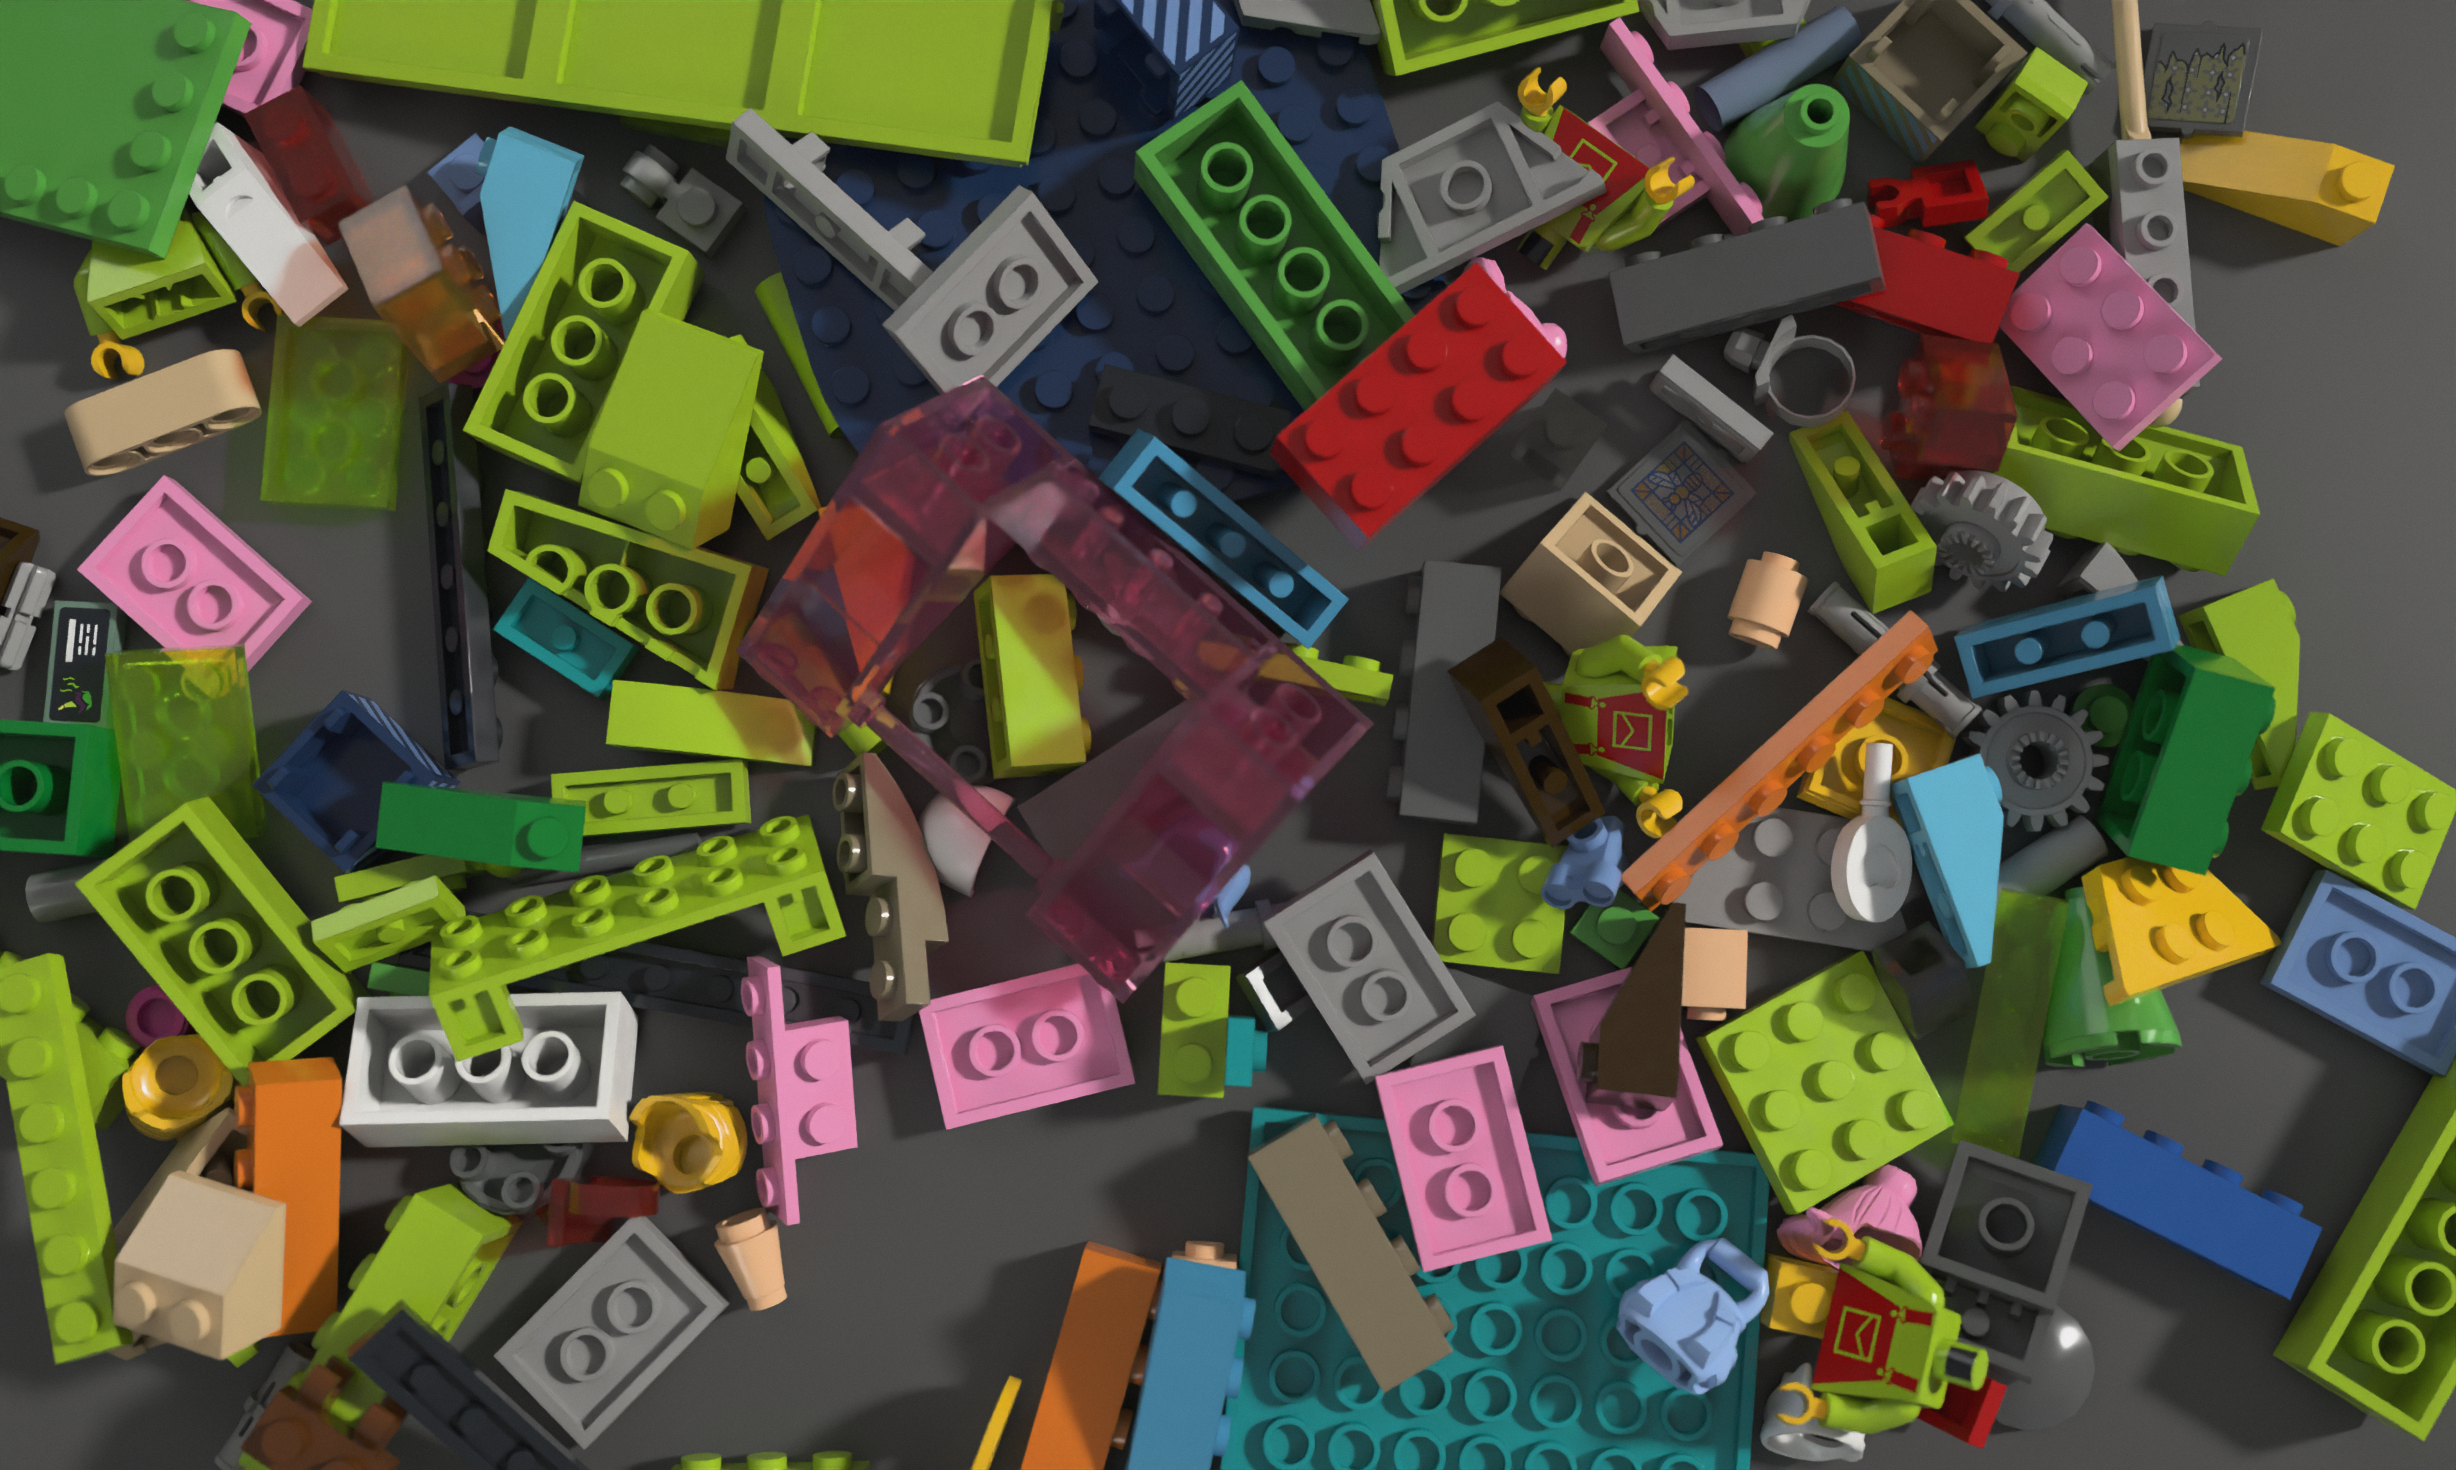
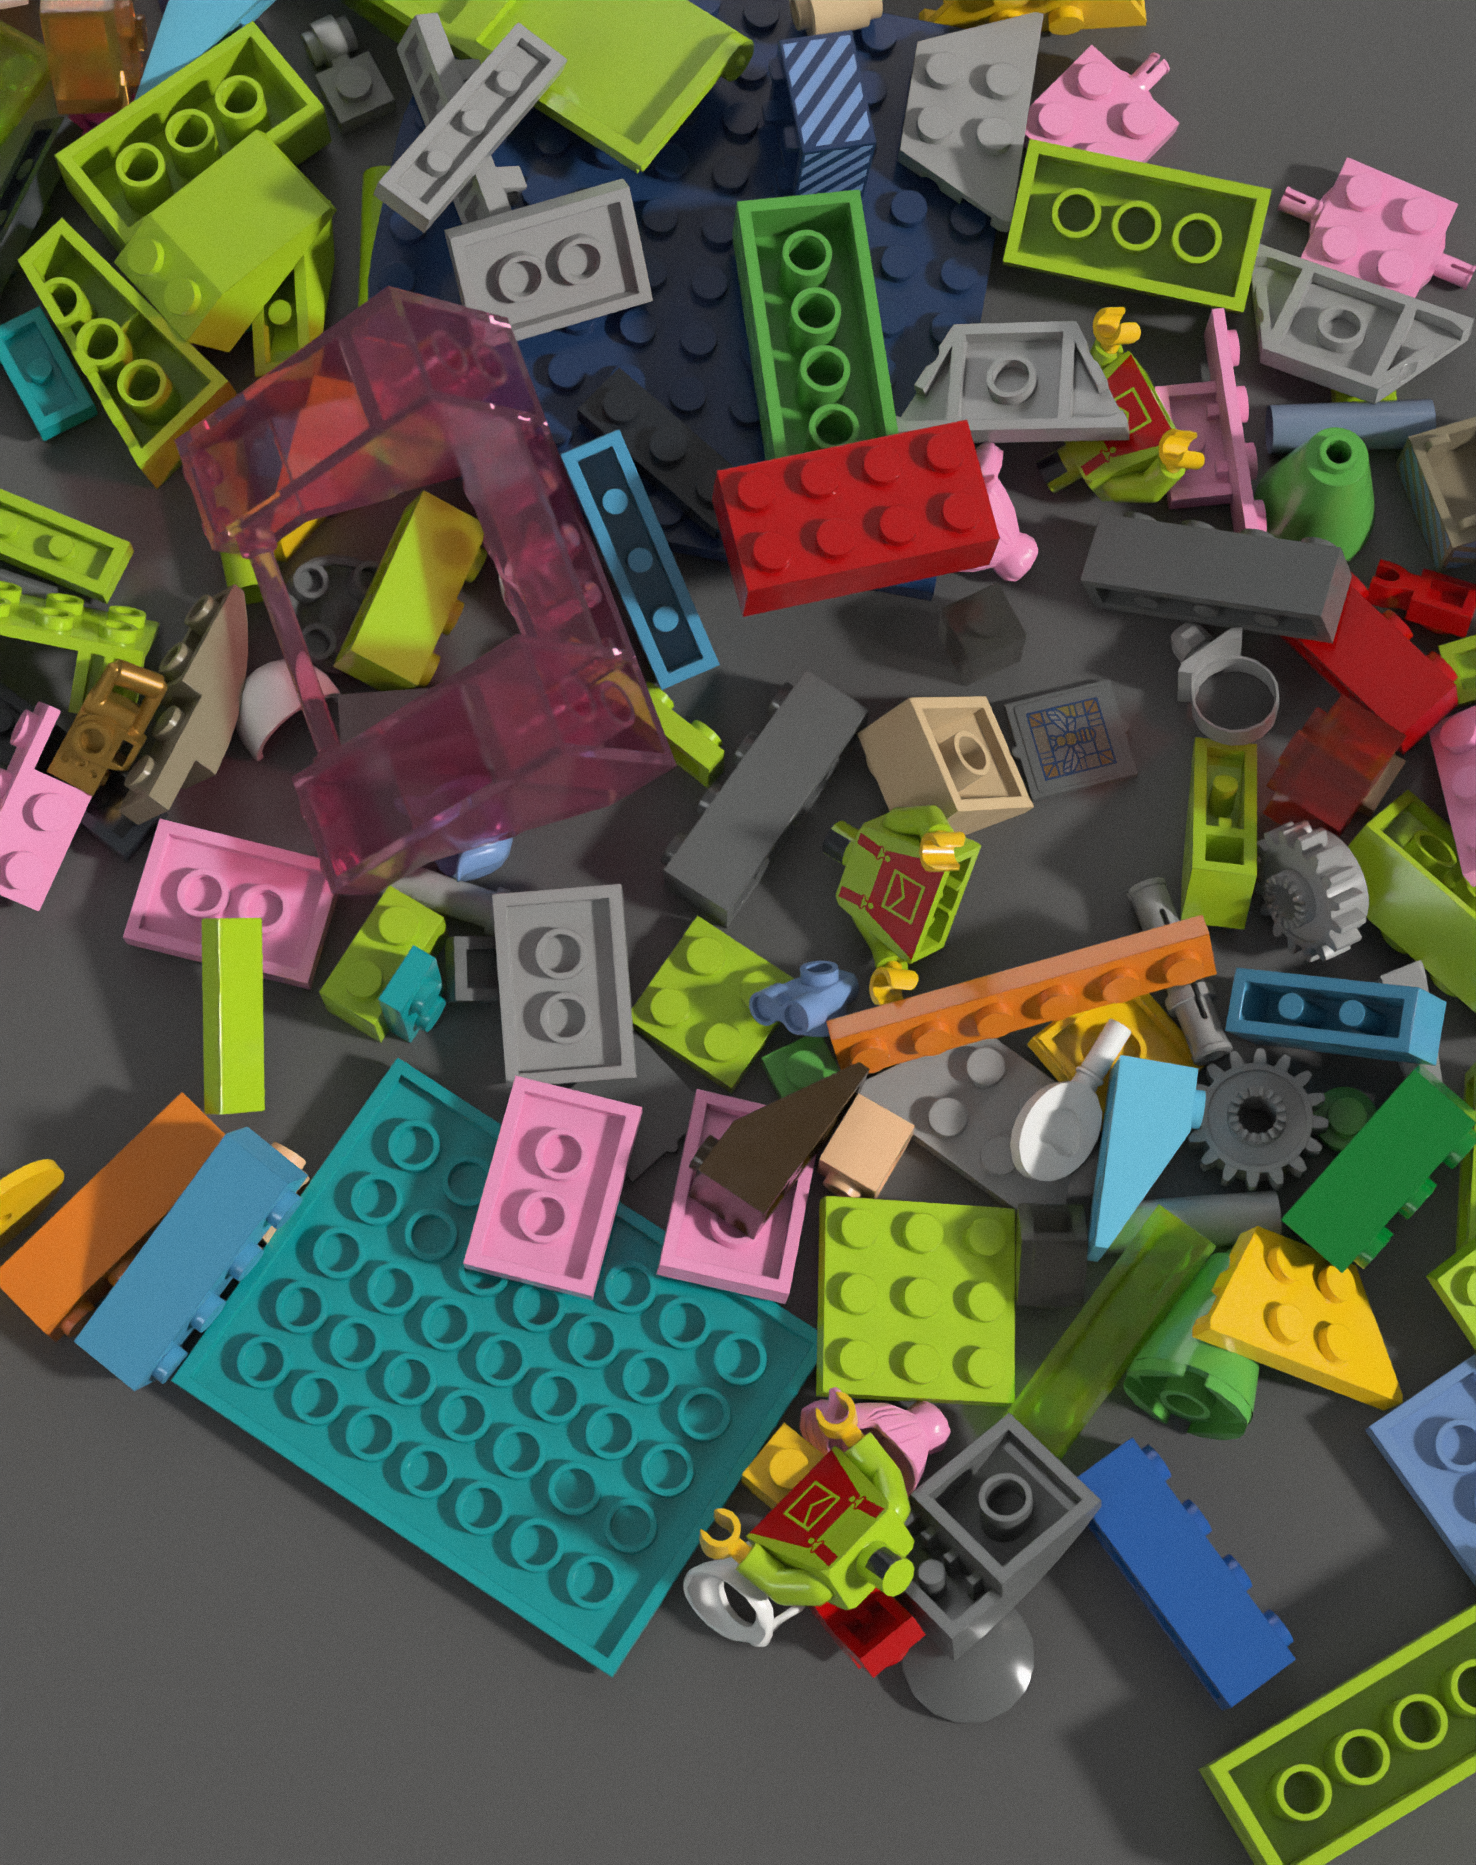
camera: 25 degrees right, 10 degrees down
(709, 724) = (119, 500): lime slope -> none
(826, 952) = (105, 724): none -> pearl gold piece
(850, 210) = (470, 127): none -> light grey plate
(1088, 1152) = (233, 1015): none -> lime tile
(1350, 1252) = (410, 1212): dark tan brick -> none
(1527, 738) = (807, 861): dark brown slope -> none
(1687, 1321) = (672, 1431): light blue piece -> none
(1710, 410) = (1130, 678): light grey tile -> none
(1767, 600) = (1093, 864): light nougat brick -> none

